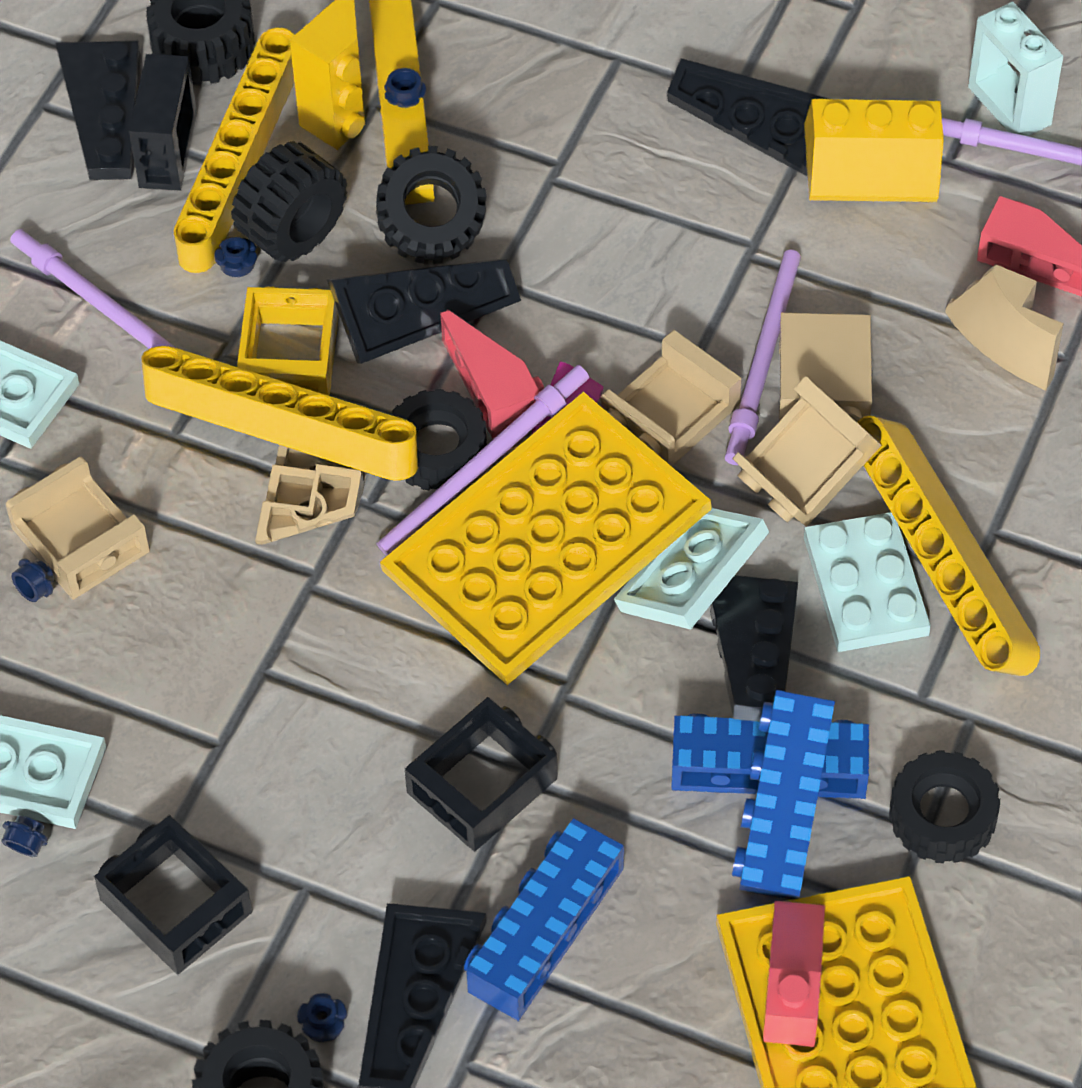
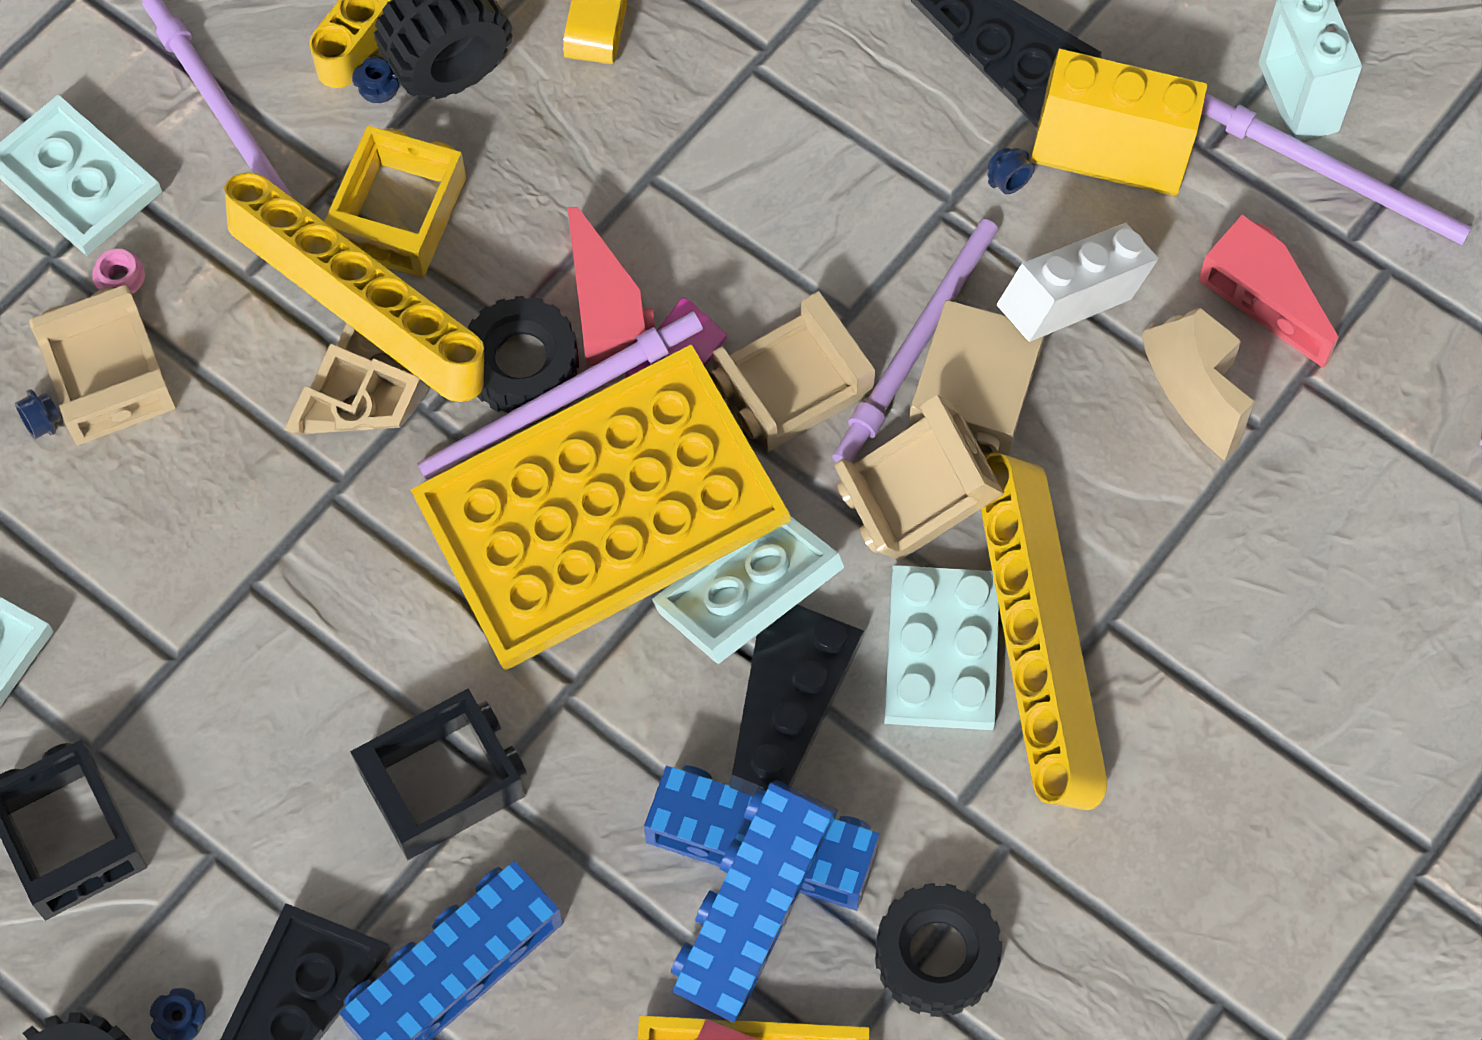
camera: 15 degrees right, 10 degrees up
(62, 445) = (115, 262): none -> bright pink plate
(406, 306) = (530, 187): black wing -> none
(438, 170) = (563, 47): black tyre -> none
(795, 209) = (1010, 170): none -> dark blue plate
(885, 273) = (1077, 281): none -> white brick

